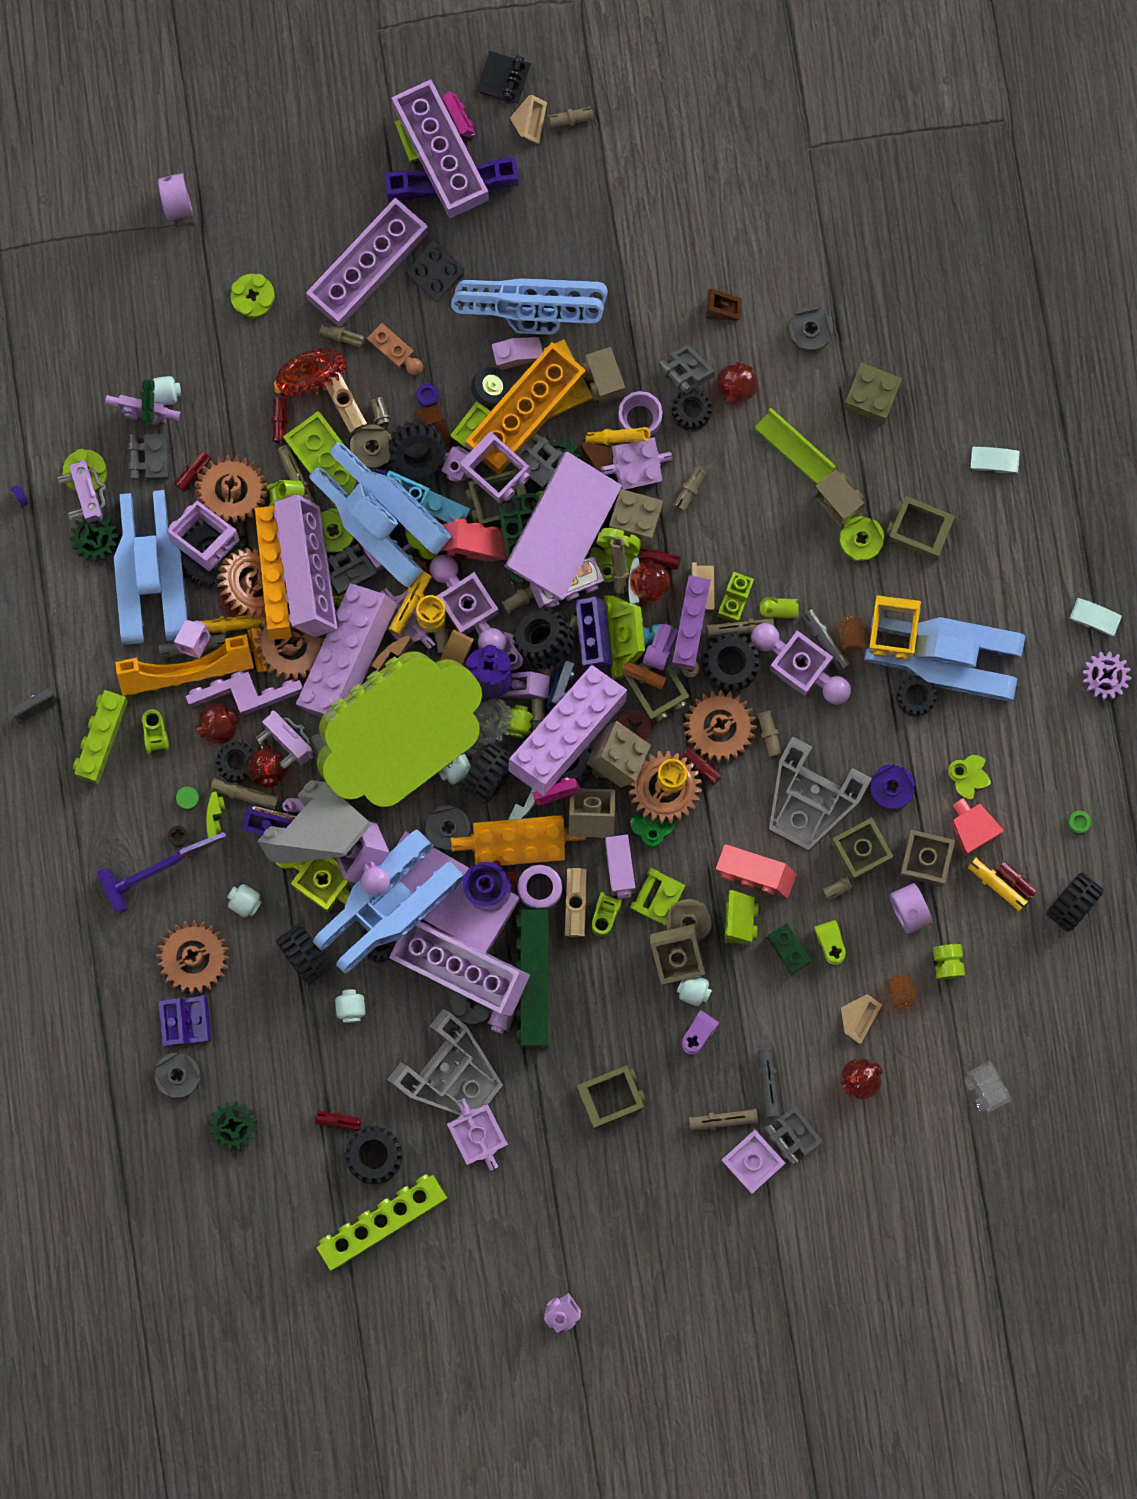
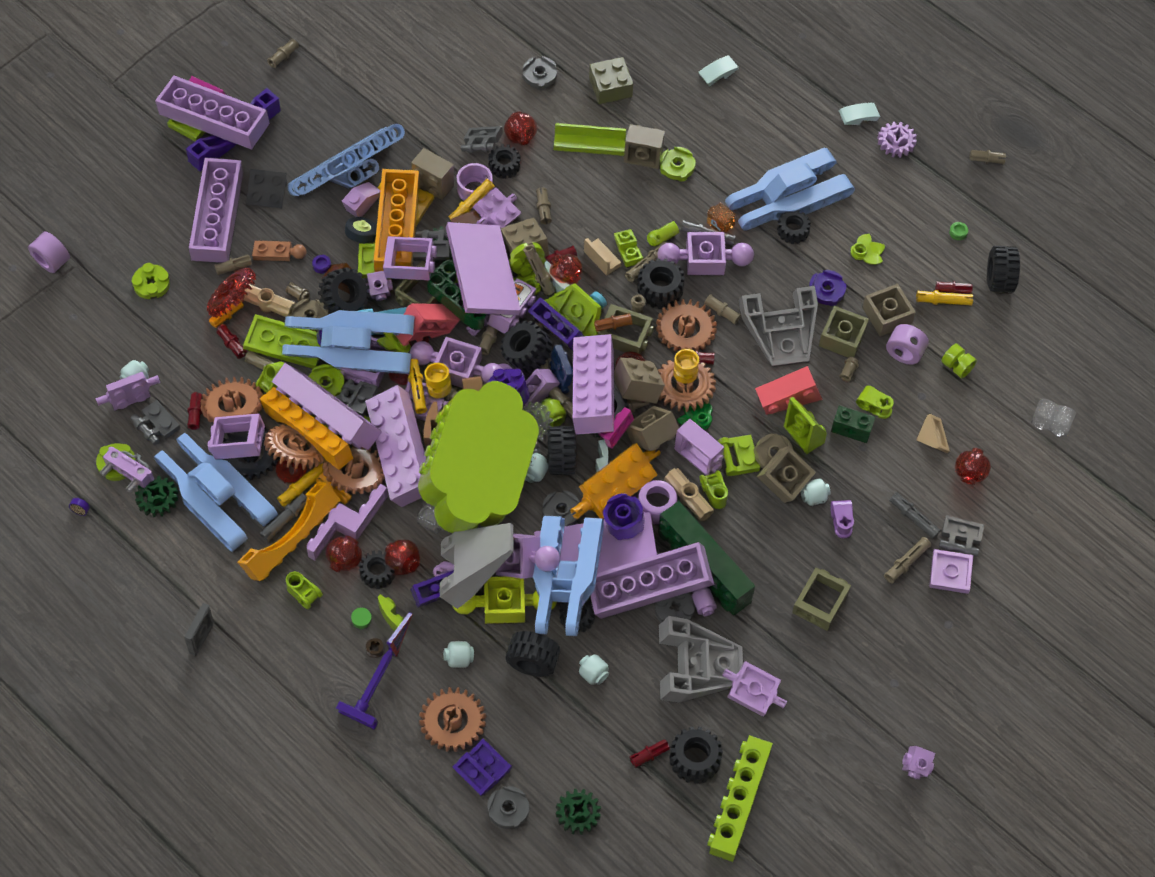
camera: 40 degrees left, 20 degrees down
(100, 737) = (266, 620): lime brick -> none
(147, 401) = (130, 374): dark green axle -> none
(192, 638) = (282, 507): lavender brick -> none
(248, 795) = (398, 586): dark tan pin -> none
(287, 738) = (402, 526): lavender piece -> none
(503, 77) = (219, 58): black hinge -> none
(529, 118) = (256, 70): tan slope -> none
(659, 652) = (610, 301): medium lavender piece -> none
(691, 623) = (617, 269): medium lavender brick -> none
(722, 306) = (471, 94): reddish brown slope -> none
(899, 605) = (740, 175): yellow window -> none
(901, 991) = (946, 399): clear orange brick -> none
(912, 544) = (705, 147): olive window -> none
(974, 826) = (899, 271): coral torso -> none

